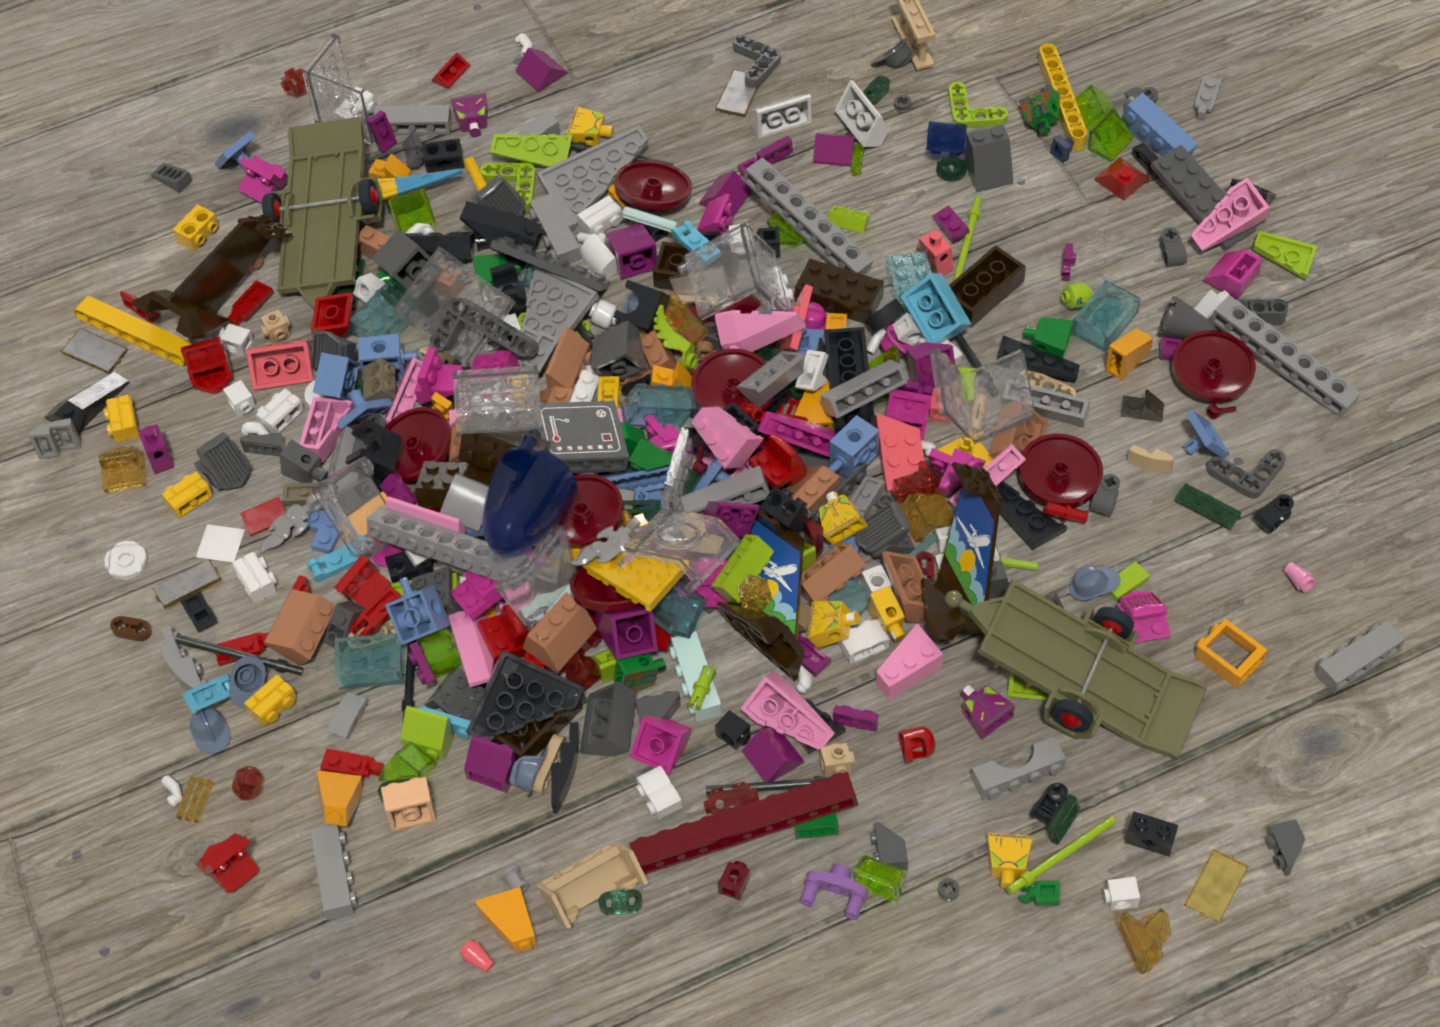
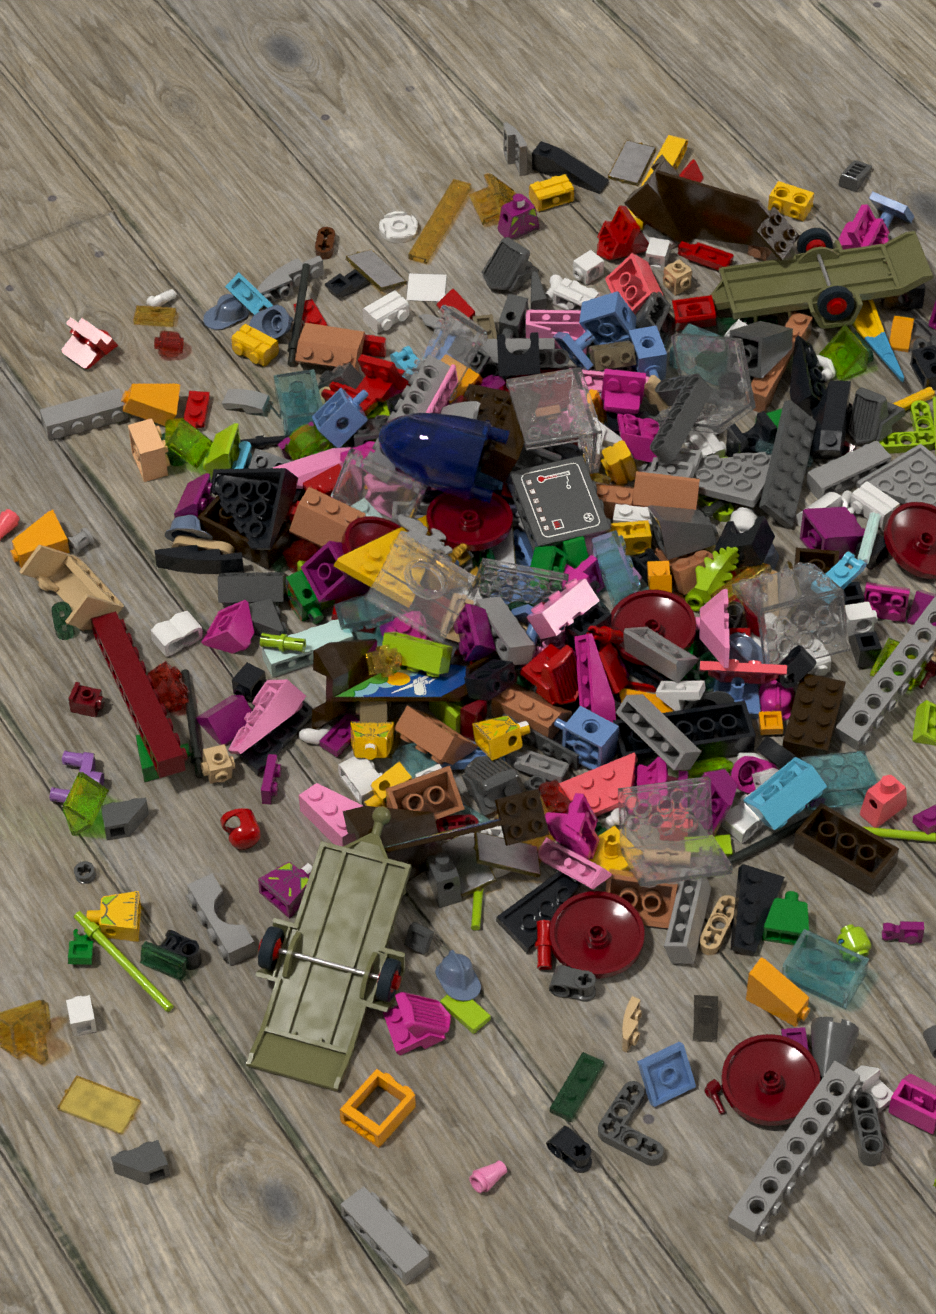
camera: 80 degrees right, 5 degrees down
(129, 521) = (439, 221): none -> clear yellow tile
(186, 494) = (470, 250): yellow brick -> none
(792, 291) = (798, 664): none -> black piece
(1151, 833) = (149, 1037): black brick -> none

